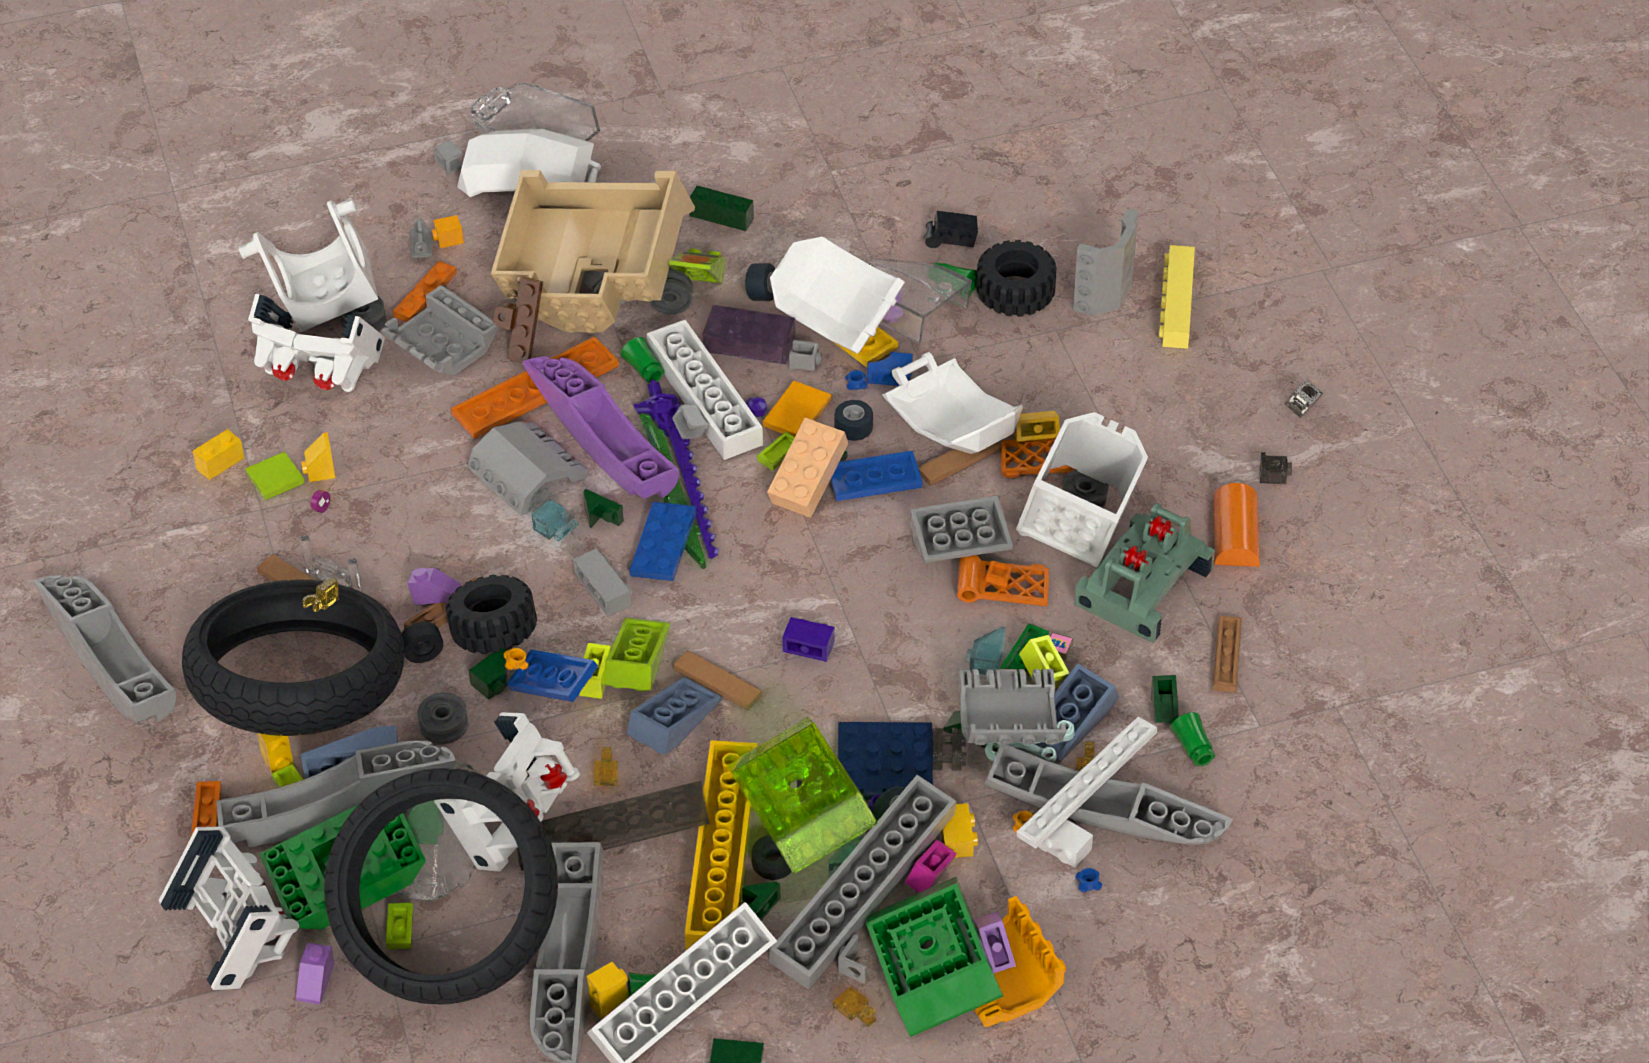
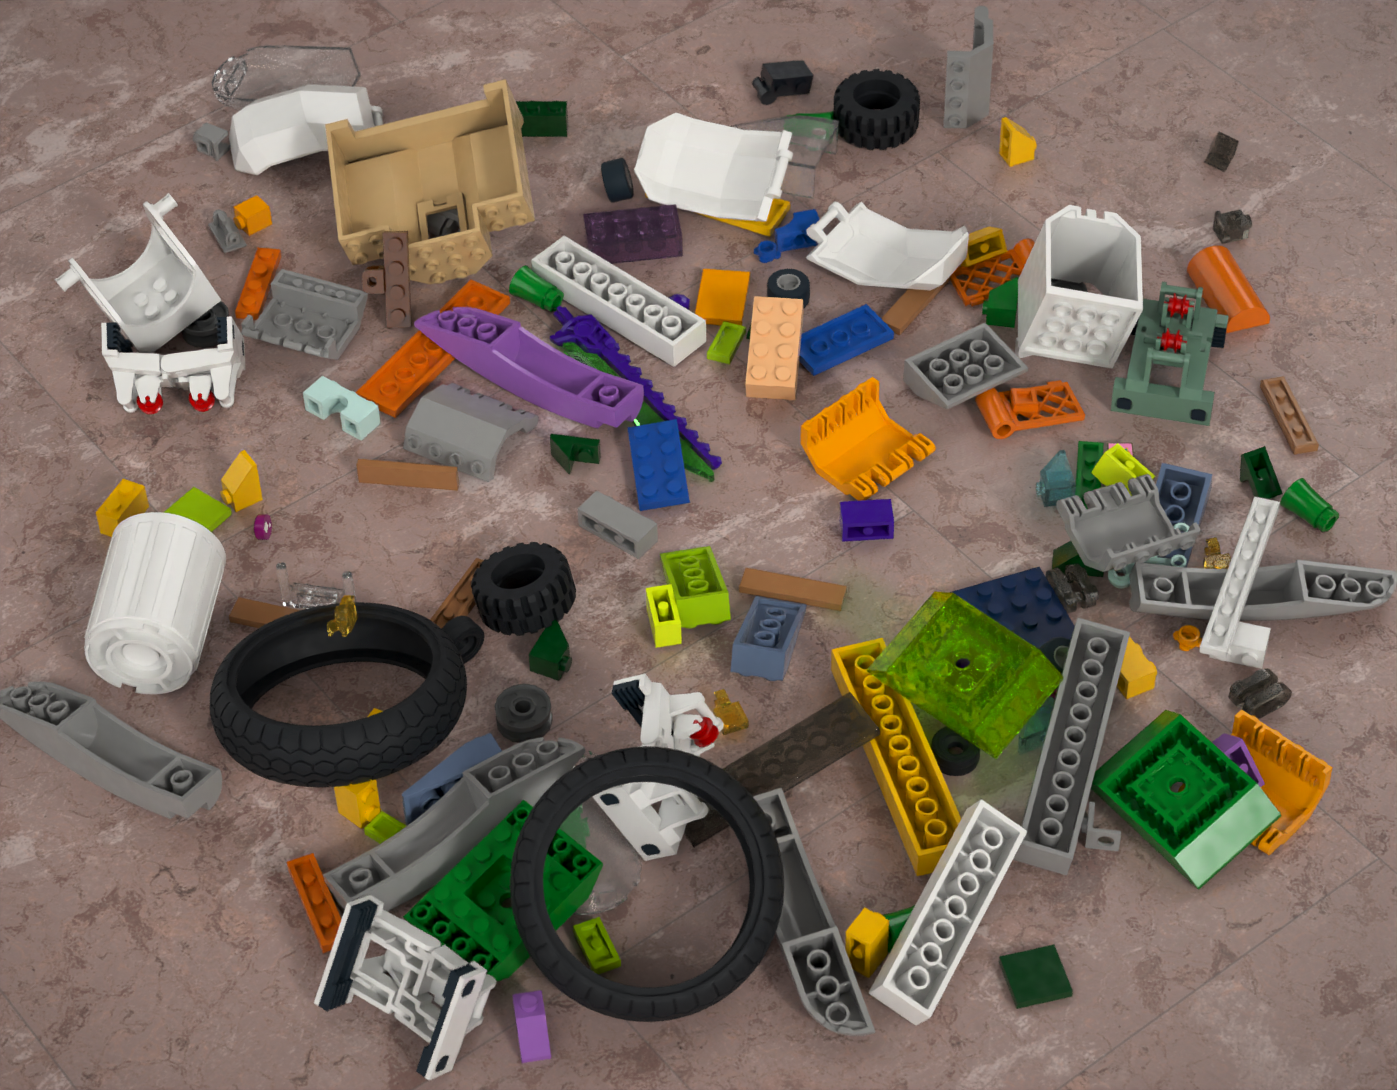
camera: 20 degrees left, 0 degrees up
(192, 539) = (154, 602): none -> white container
(431, 586) = (440, 580): medium lavender slope -> none
(441, 425) = (357, 414): none -> light aqua arch
(456, 490) = (408, 474): none -> medium nougat tile
(515, 659) = (574, 627): light orange plate -> none
(552, 521) = (528, 475): clear light blue brick -> none
(552, 675) = (624, 632): blue plate -> none
(676, 294) = (544, 216): dark grey wheel -> none
(690, 421) = (624, 335): light grey window -> none
(700, 265) = (551, 179): lime slope -> none
(761, 897) = (967, 792): dark green slope -> none
(804, 355) = (702, 241): light grey window -> none
(839, 570) = (861, 443): none -> light orange hinge
(853, 1005) = (1123, 875): clear yellow plate -> none
(930, 867) = (1125, 712): dark pink slope -> none
(1024, 480) = (1002, 304): none -> green slope
(1055, 889) = (1259, 693): none -> clear smoke brick
(1088, 875) = (1287, 674): blue plate -> none
(1123, 341) = (1015, 143): none -> yellow slope
(1178, 296) = (1043, 87): light yellow brick -> none

